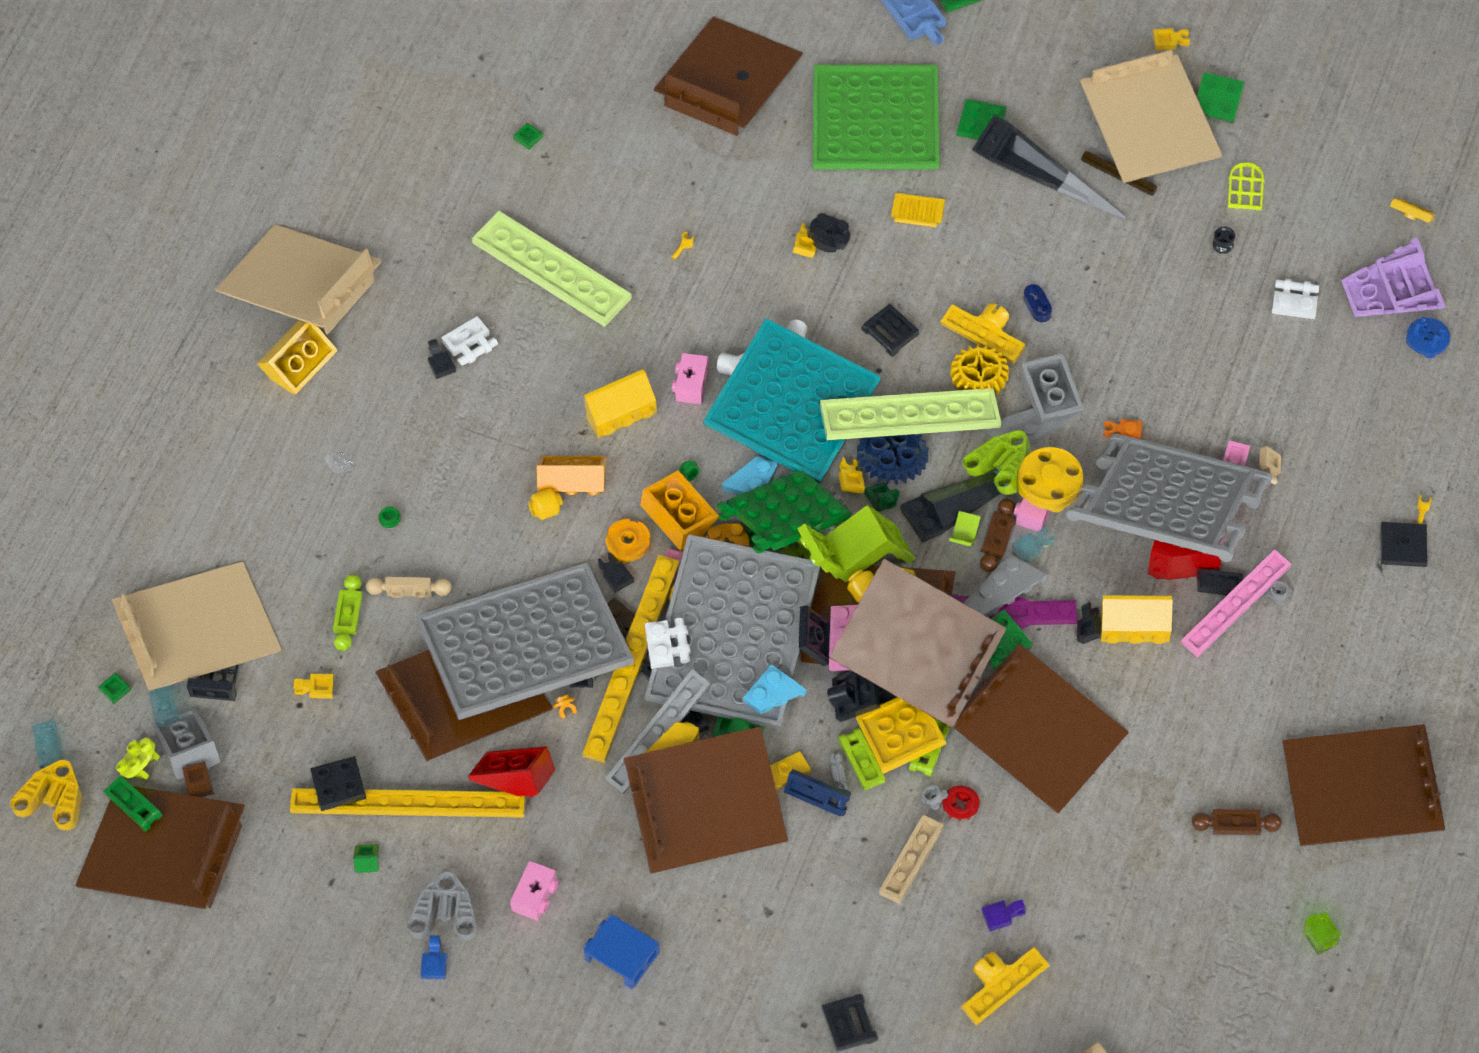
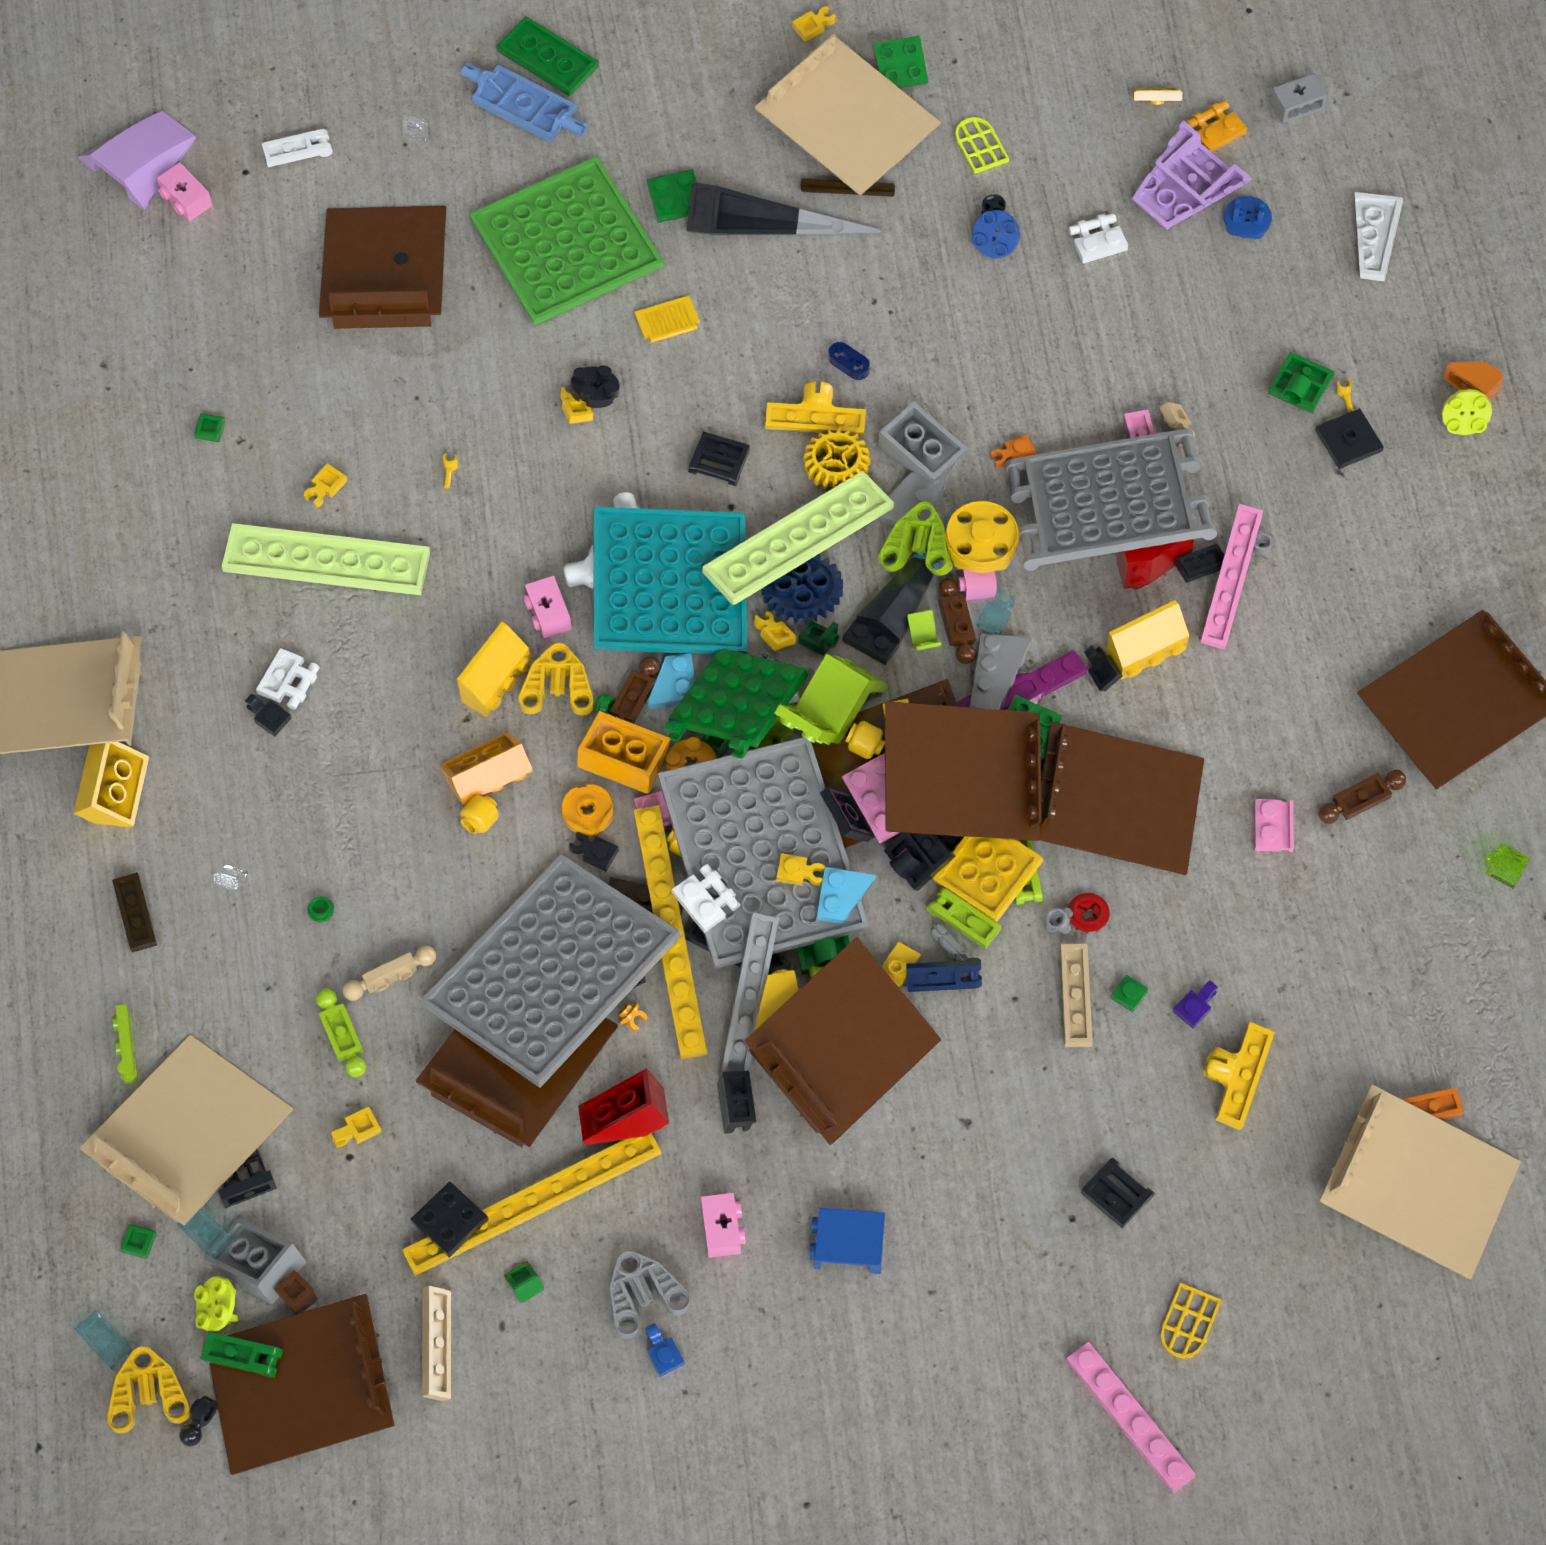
camera: 30 degrees left, 5 degrees up
(80, 831) = (202, 1413): none -> black plate
(191, 545) = (125, 1045): none -> lime plate
(257, 455) = (134, 912): none -> dark brown plate
(274, 868) = (436, 1343): none -> tan plate
(586, 213) = (327, 483): none -> yellow plate
(602, 805) = (736, 1100): none -> black hinge
(661, 430) = (535, 683): none -> yellow connector
(718, 471) = (636, 691): none -> reddish brown plate
(749, 655) = (794, 869): none -> yellow plate
(955, 879) = (1129, 993): none -> green plate
(1151, 809) = (1273, 825): none -> bright pink plate
(1206, 251) = (986, 229): none -> blue plate
(1390, 482) = (1301, 382): none -> green plate
(1448, 261) = (1220, 132): none -> light orange plate

